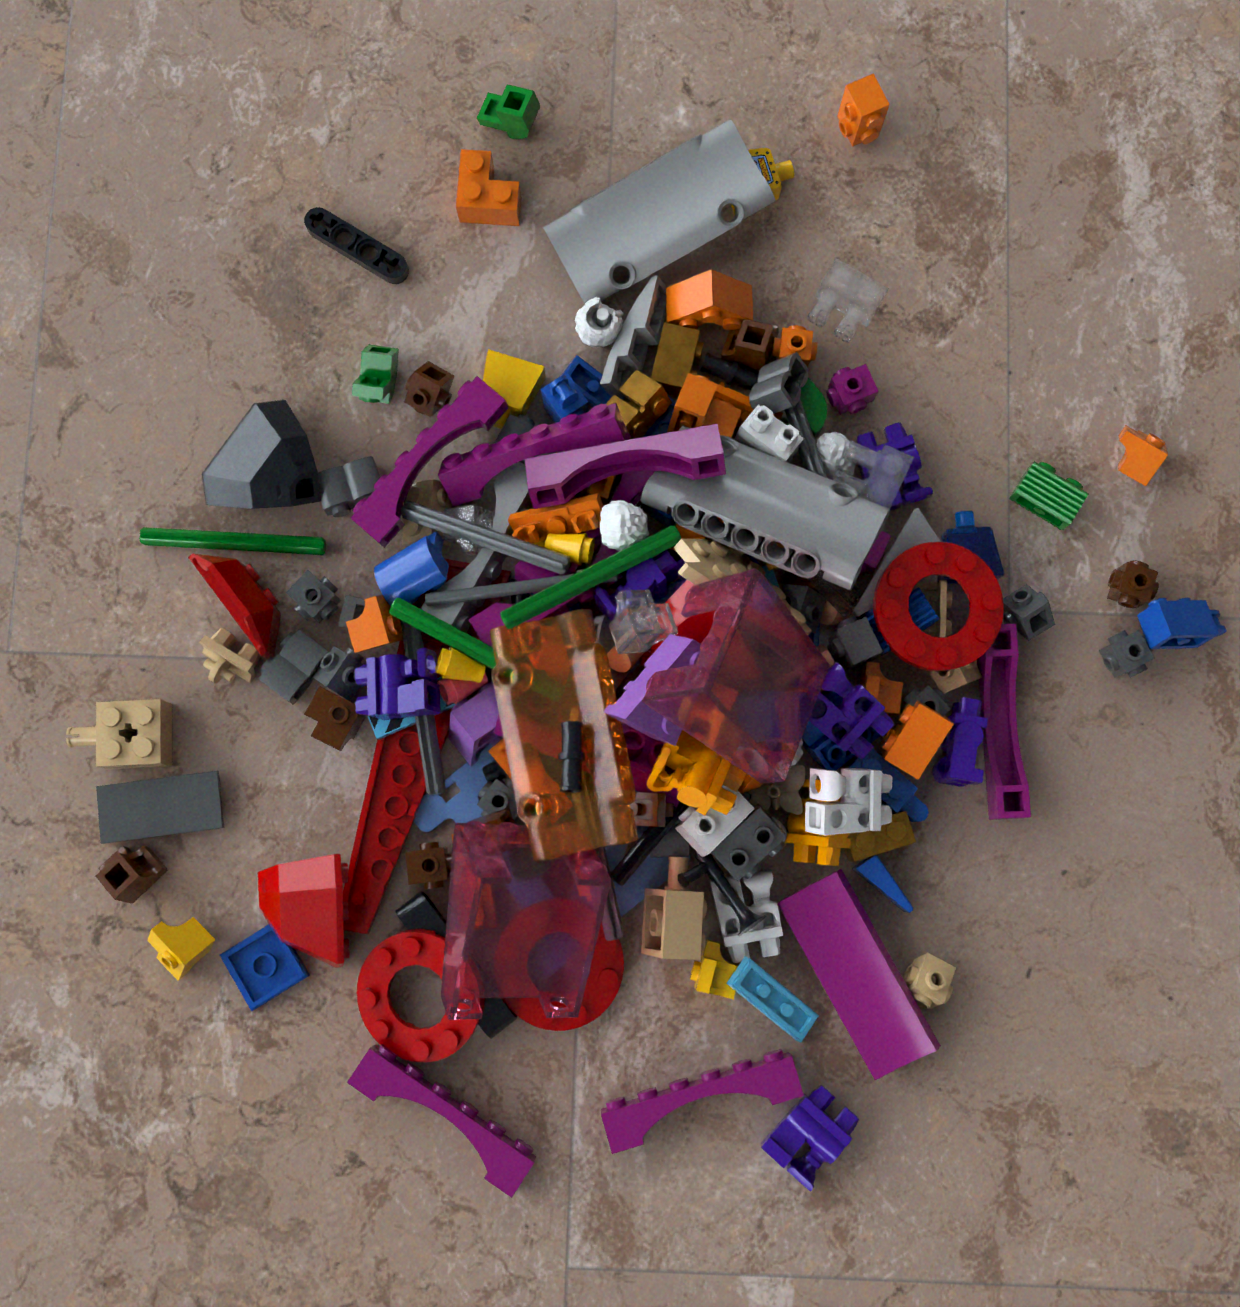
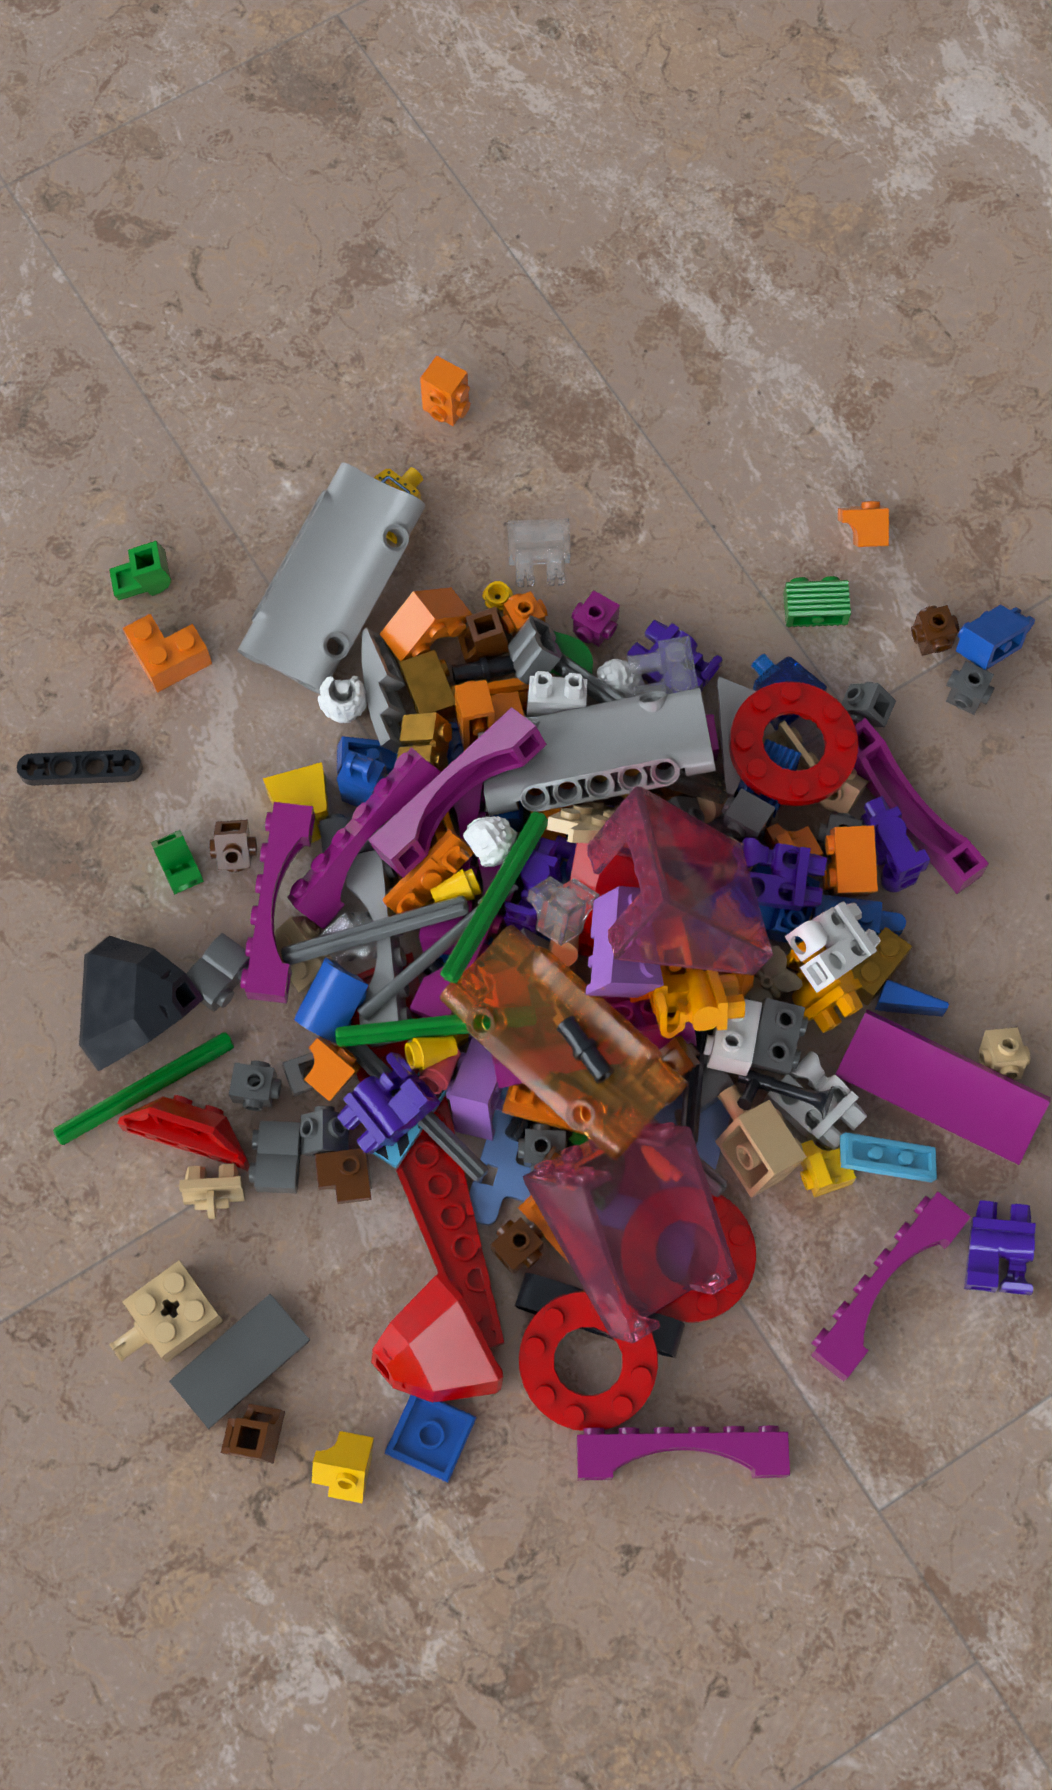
camera: 35 degrees left, 10 degrees down
(789, 310) = (493, 589): none -> yellow plate

